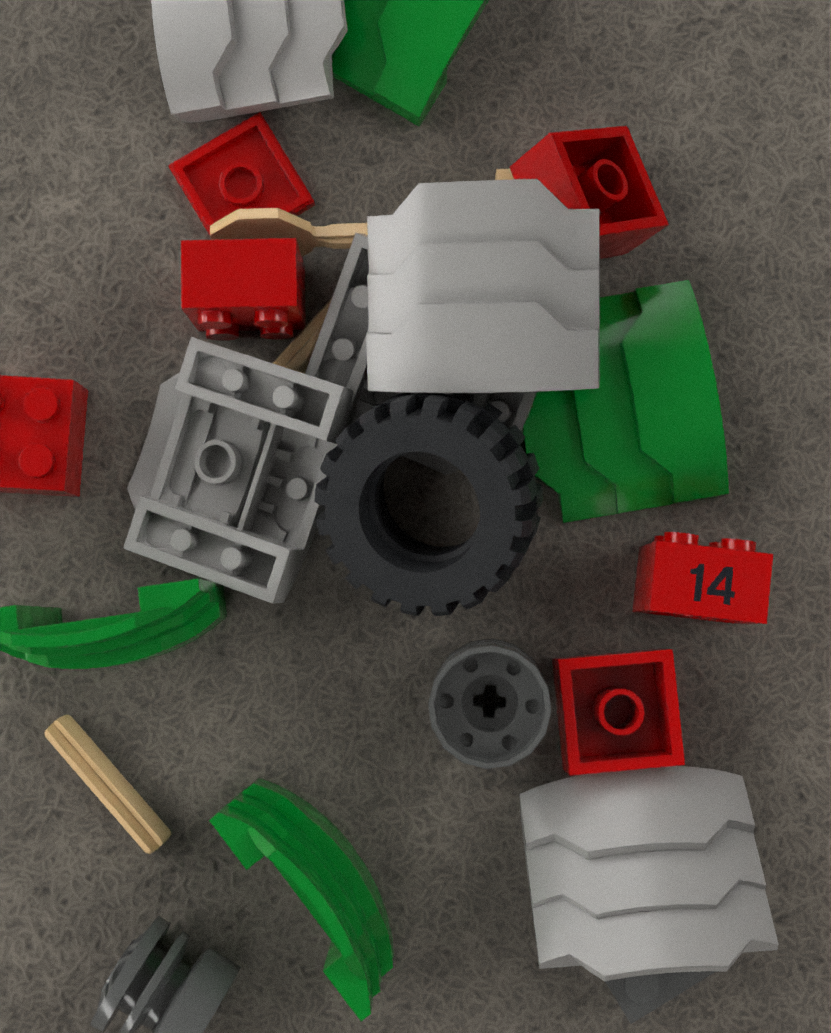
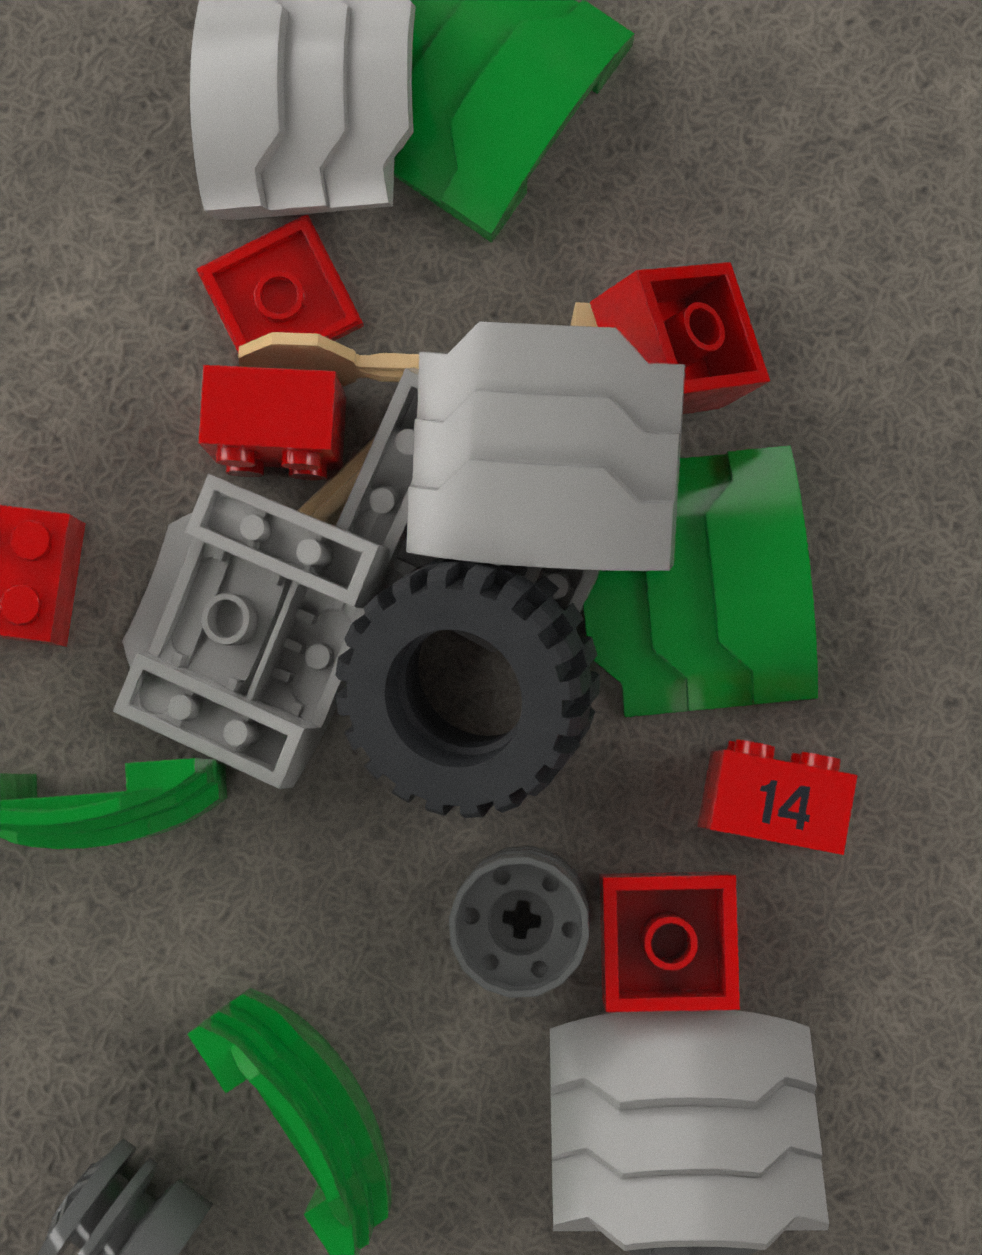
camera: 10 degrees right, 0 degrees up
(107, 783) = (76, 981): tan axle -> none

